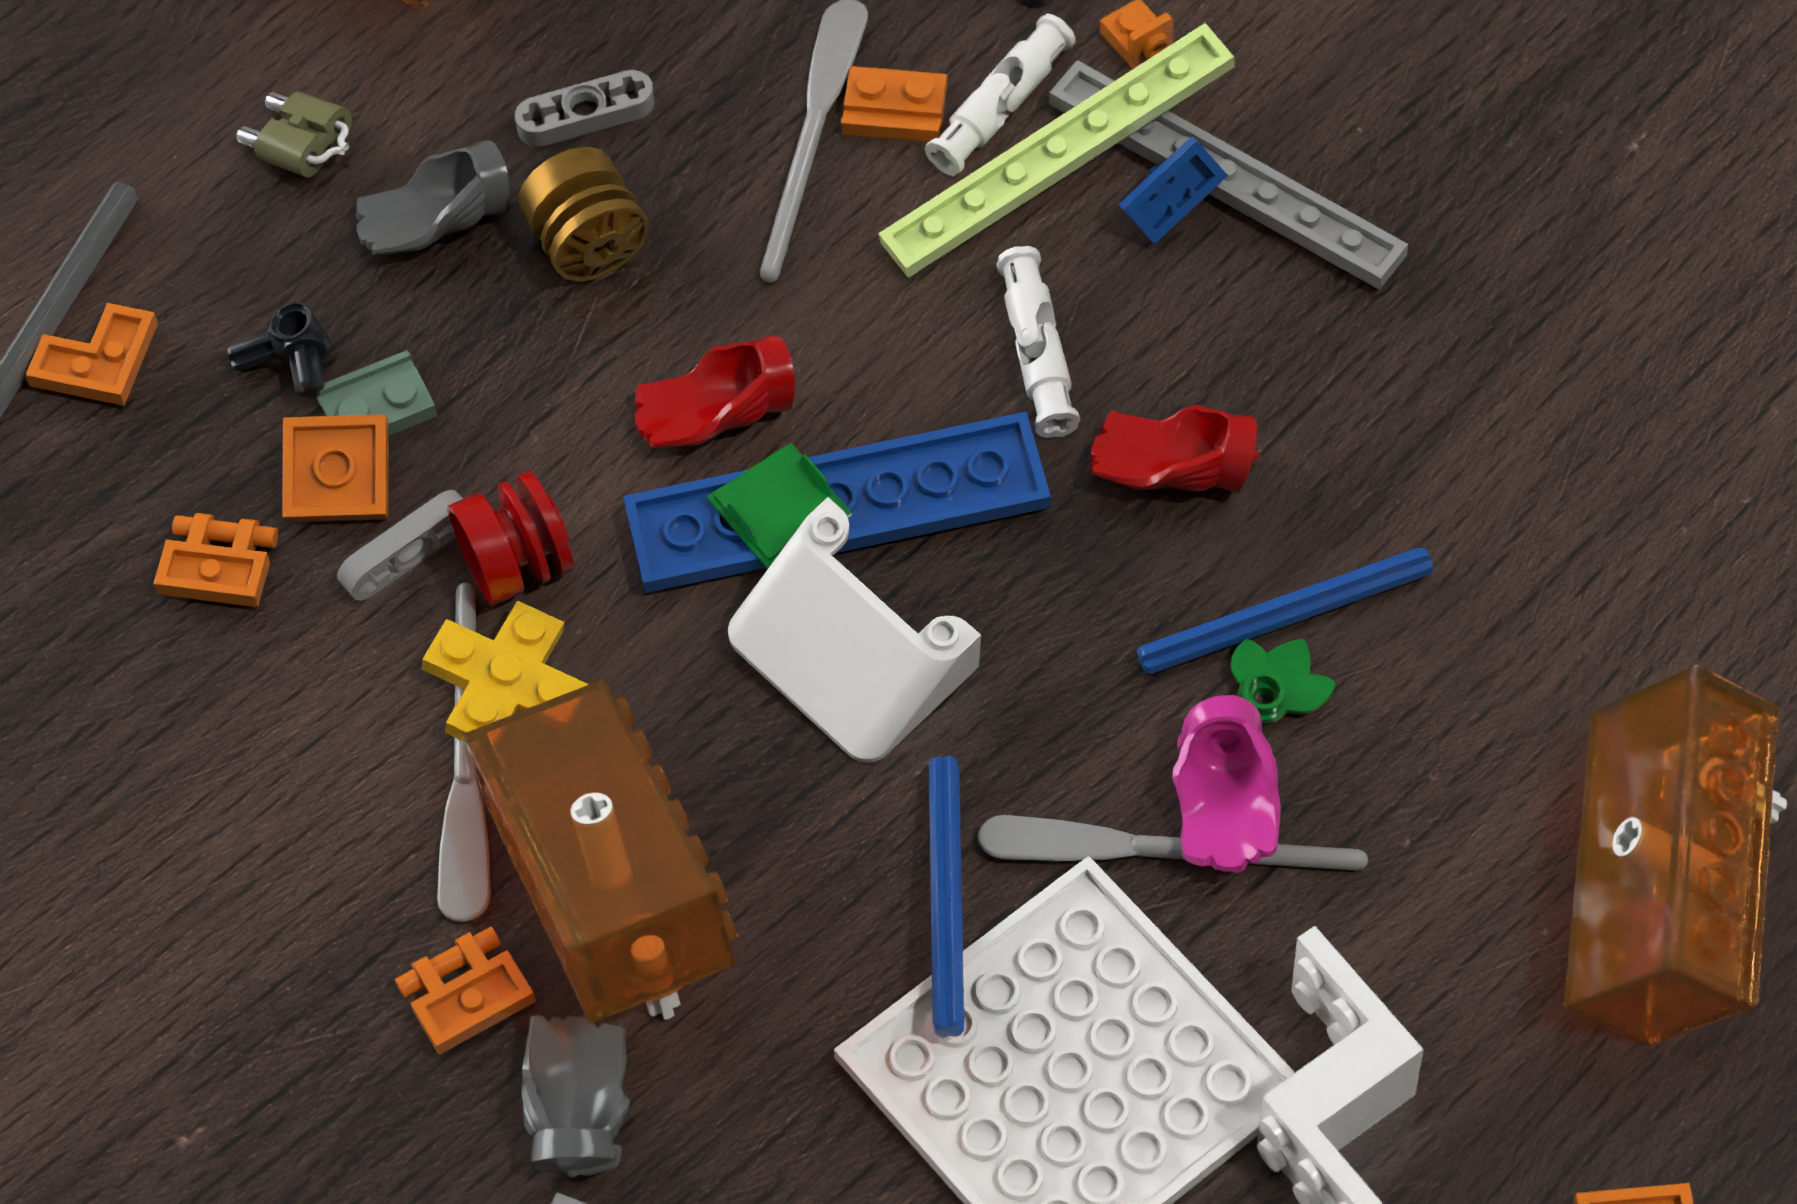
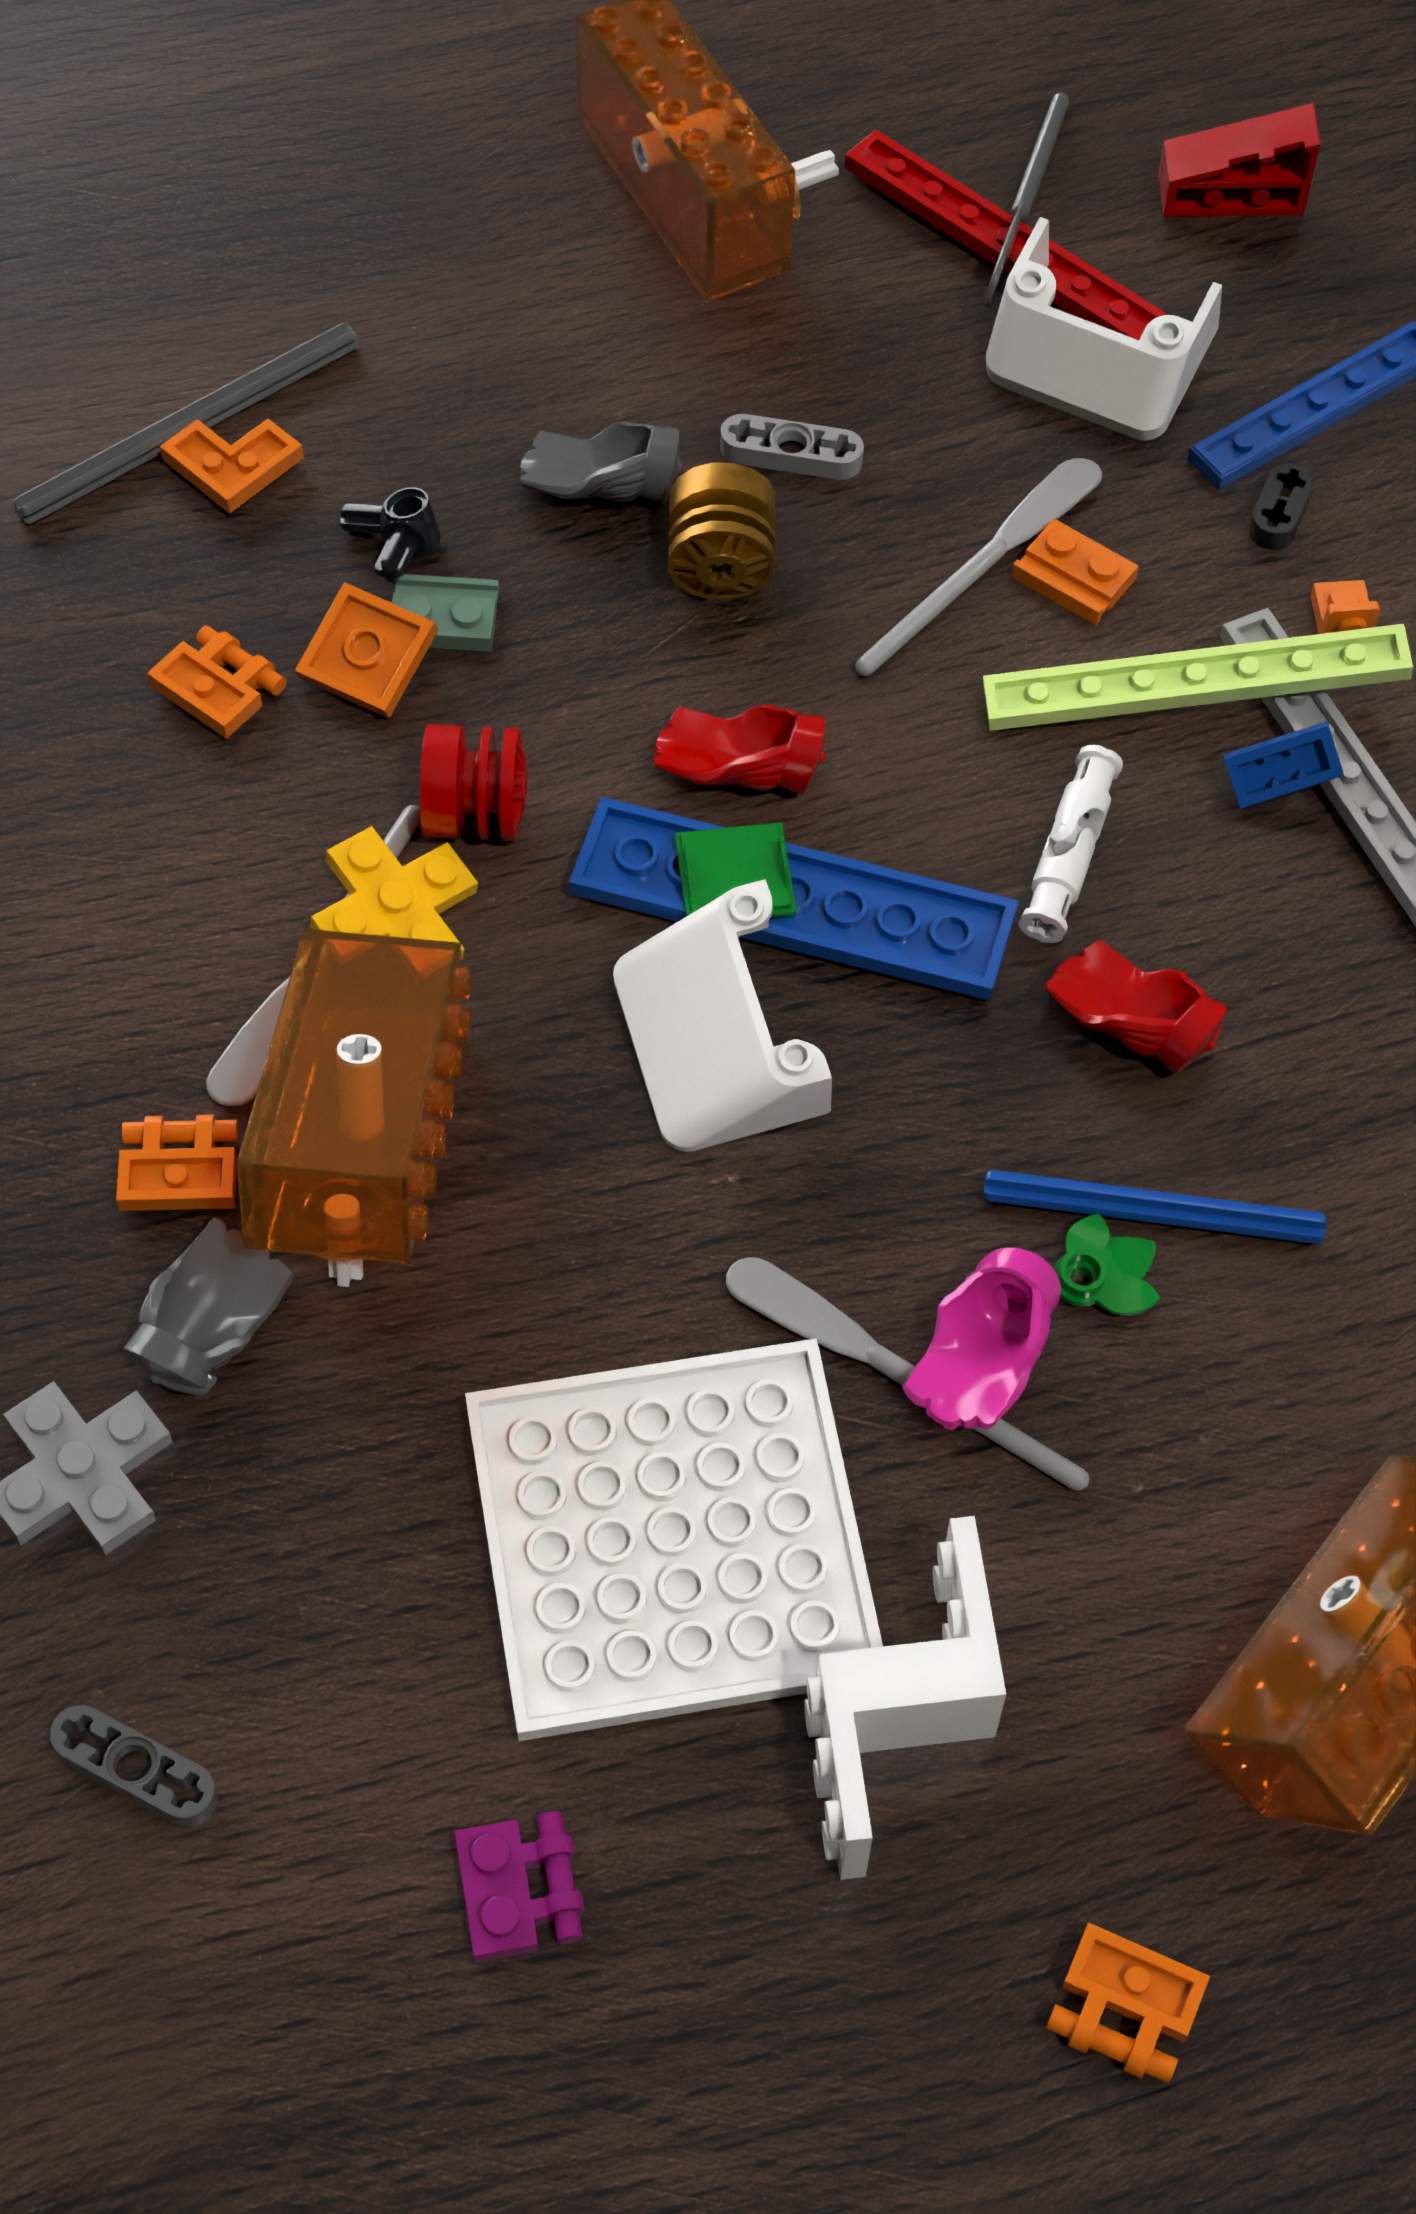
camera: 25 degrees right, 0 degrees up
(301, 134) = (525, 357): olive piece -> none
(399, 548) = (351, 749): light grey beam -> none
(946, 897) = (656, 1308): blue axle -> none
(998, 97) = (1177, 606): white piece -> none

